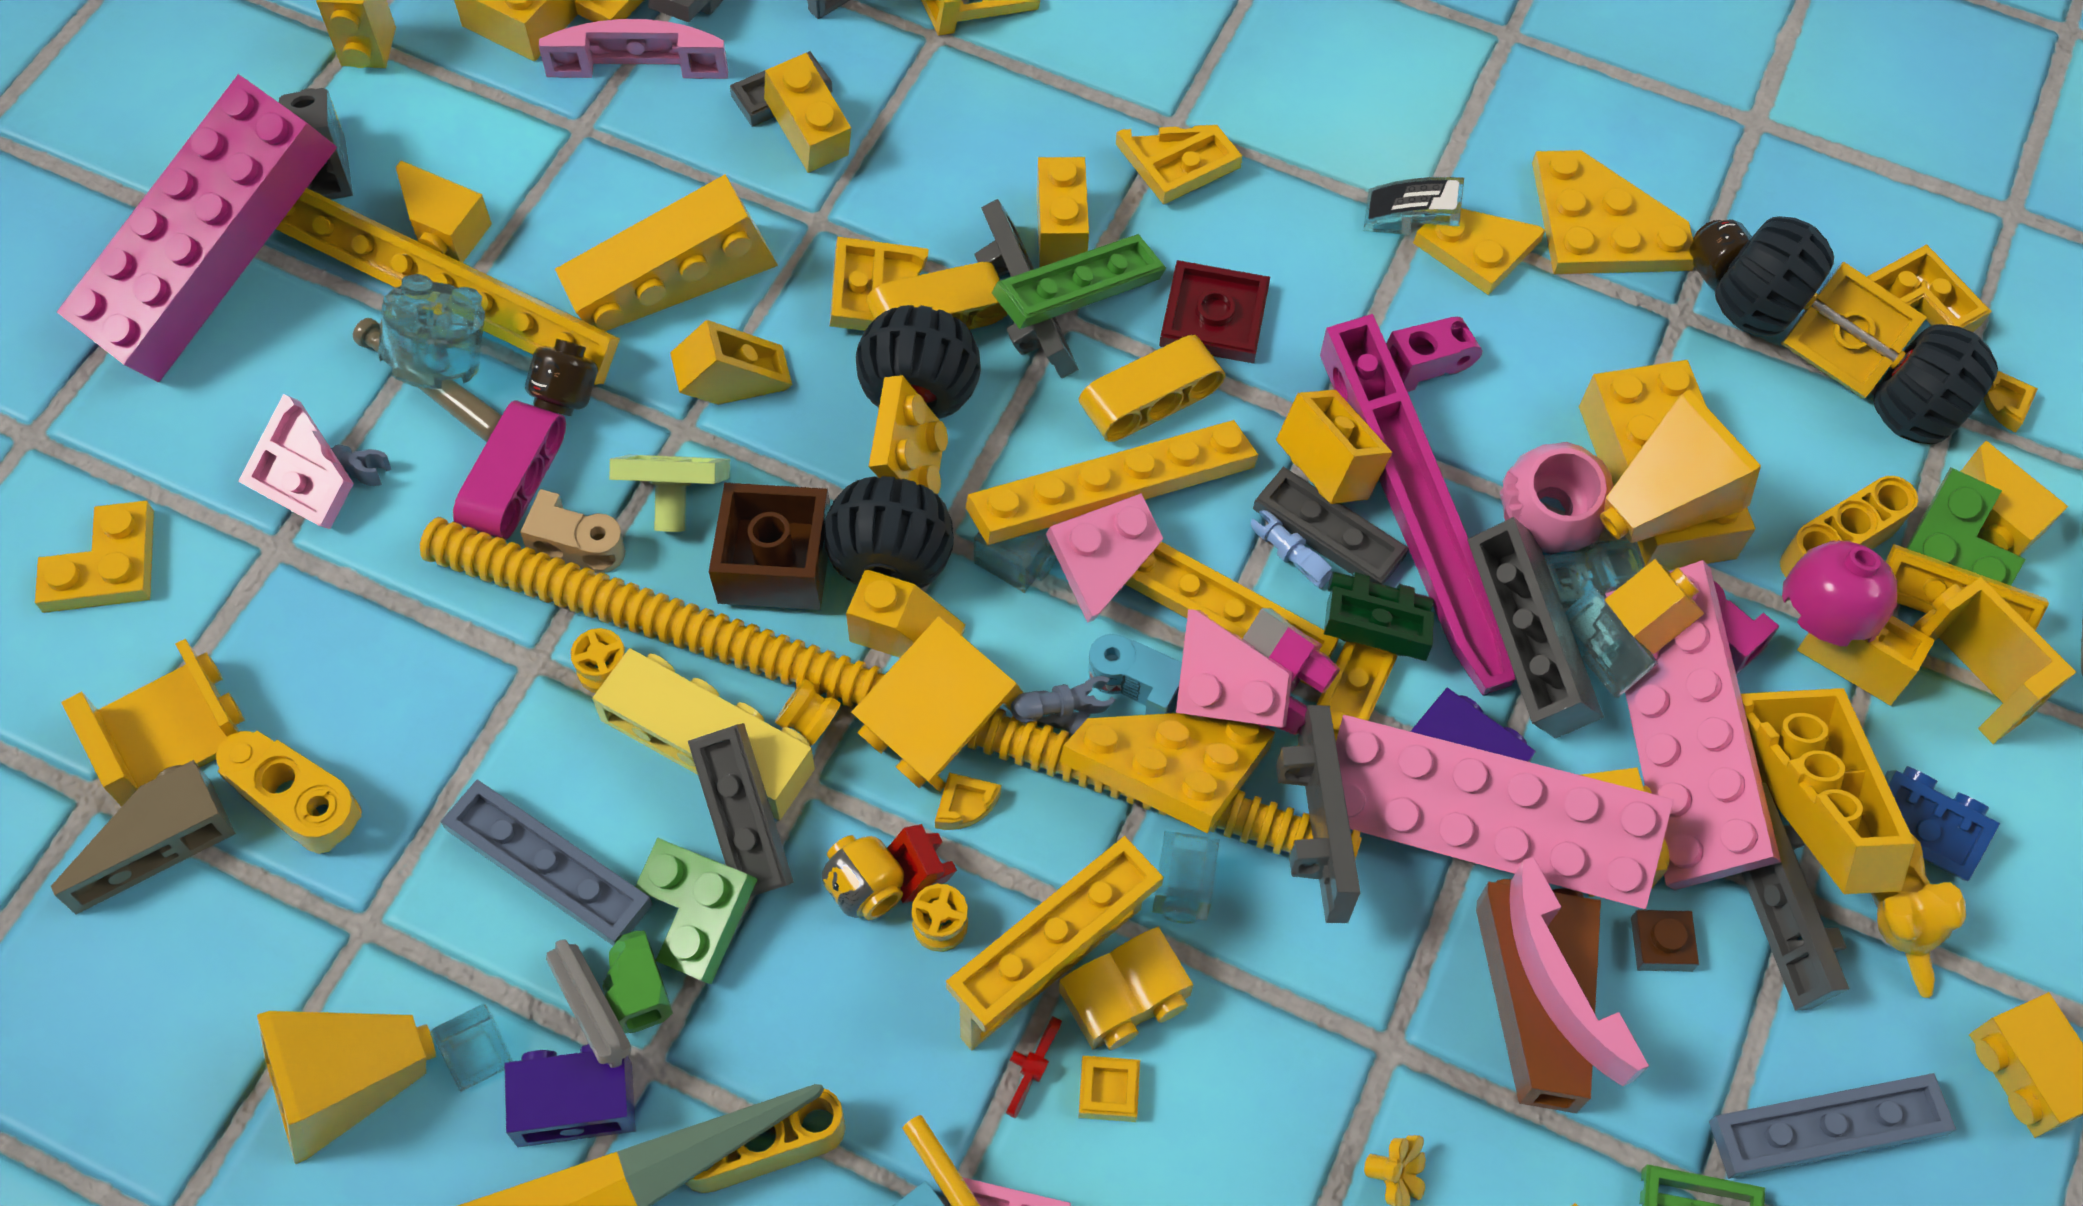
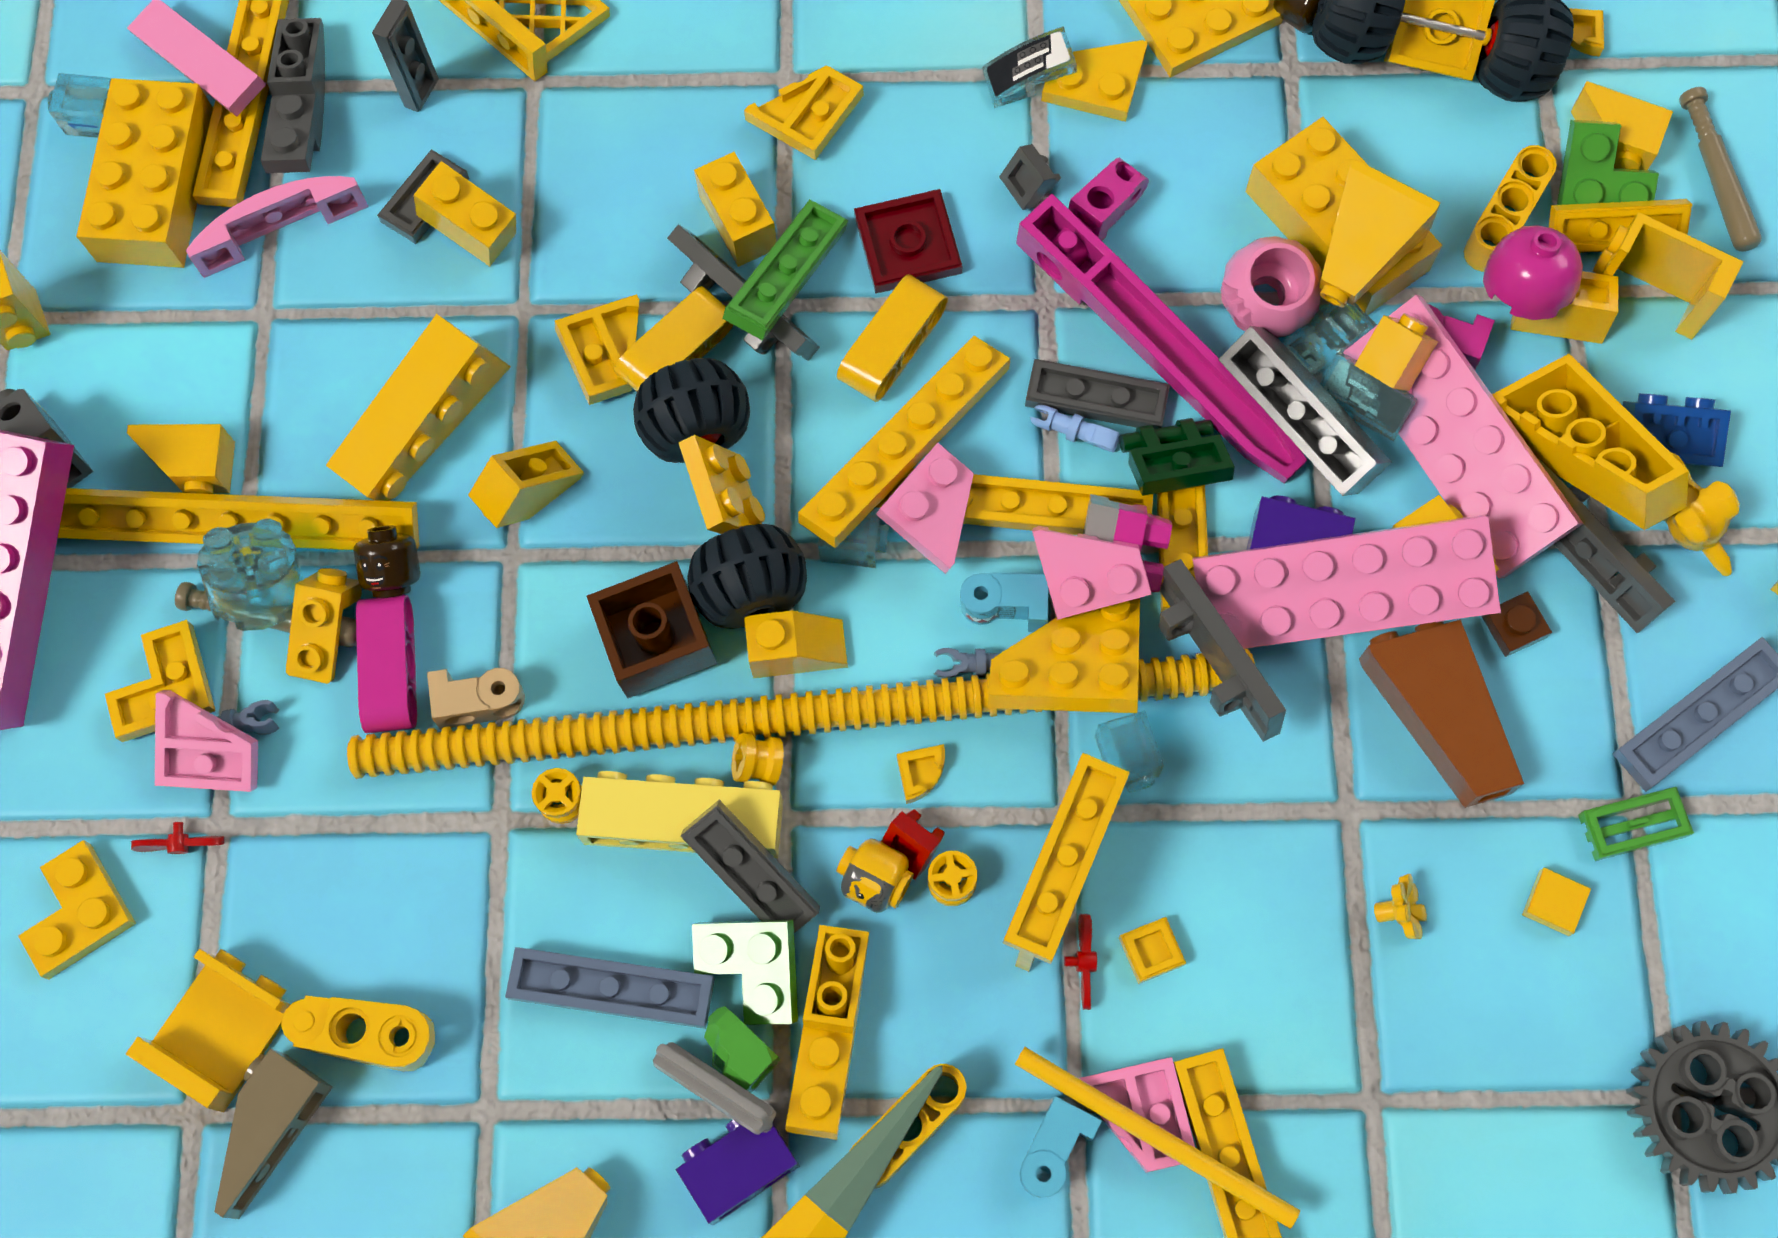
camera: 20 degrees left, 10 degrees up
(228, 543) = (175, 843): none -> red piece
(319, 384) = (173, 666): none -> yellow plate
(467, 404) = (317, 623): none -> yellow bracket
(472, 1047) = (636, 1166): clear light blue slope -> none
(670, 479) = (532, 607): yellowish green tile -> none
(733, 1009) = (828, 1032): none -> yellow slope
(933, 702) = (860, 705): yellow panel -> none
(1061, 701) = (960, 653): sand blue piece -> none
(1126, 989) = (1128, 866): yellow brick -> none
(1333, 446) = (1071, 325): yellow brick -> none
(1364, 296) = (1028, 177): none -> dark grey tile
(1601, 1042) = (1519, 738): bright pink slope -> none

